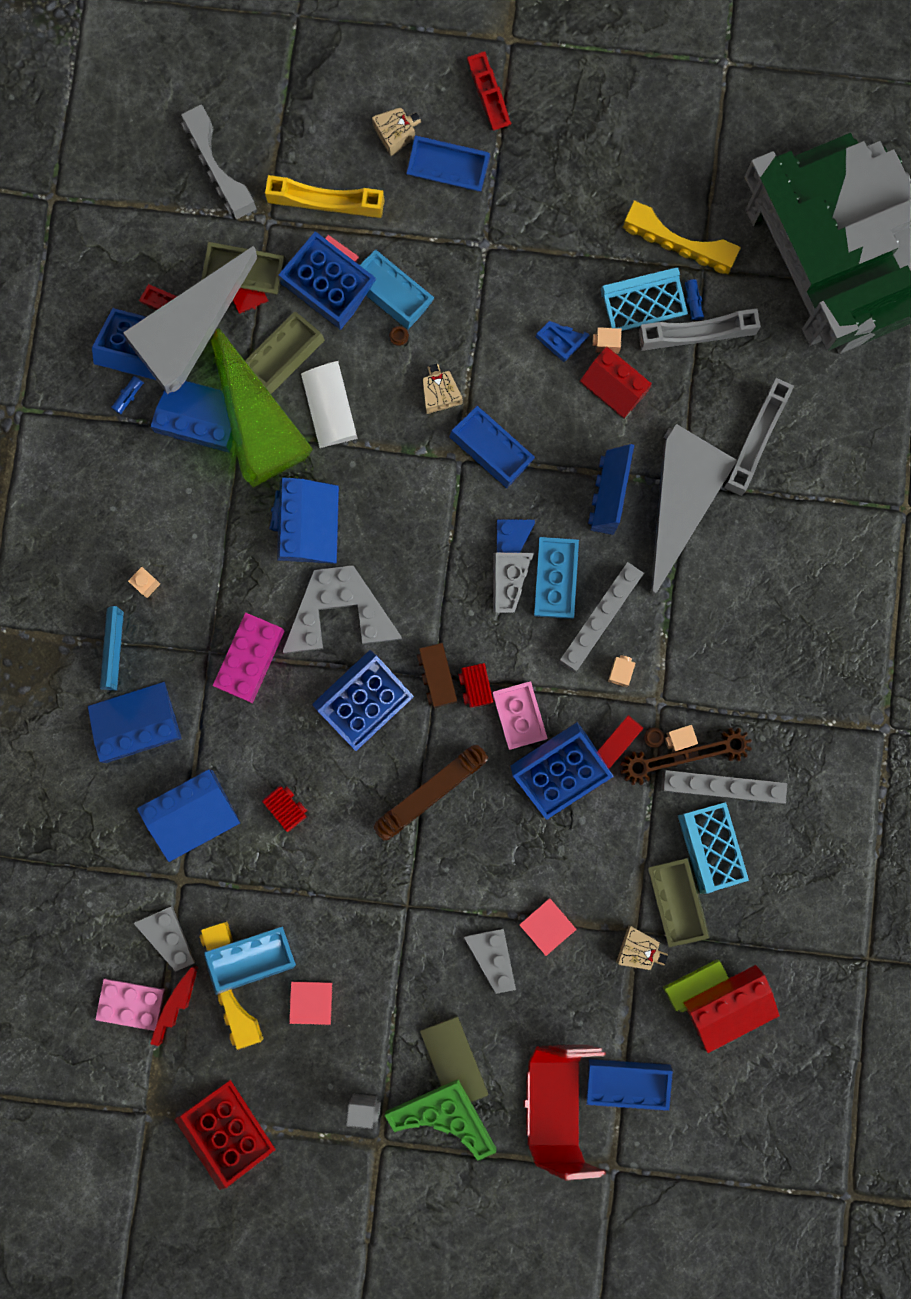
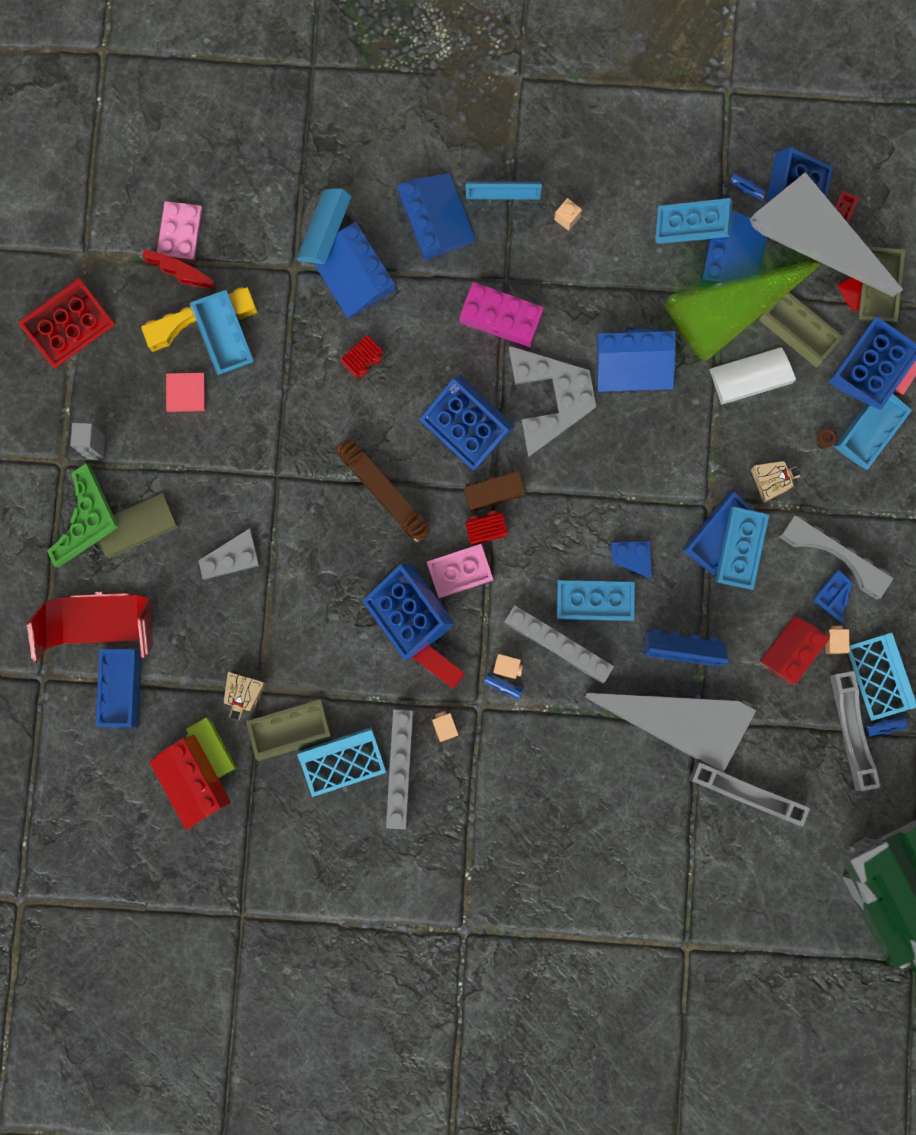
camera: 90 degrees right, 0 degrees up
(138, 844) = (324, 226): none -> dark azure slope
(163, 451) = (694, 221): none -> dark azure plate
(167, 937) = (240, 260): light grey wing -> none
(508, 579) = (591, 554): light grey wing -> none
(510, 426) = (742, 548): none -> dark azure plate
(545, 304) = (869, 578): none -> light grey arch
(547, 926) = (261, 606): coral tile -> none
(640, 677) = (503, 686): none -> blue pin
(654, 737) = (445, 701): reddish brown plate -> none
(687, 756) = (428, 731): reddish brown arm -> none

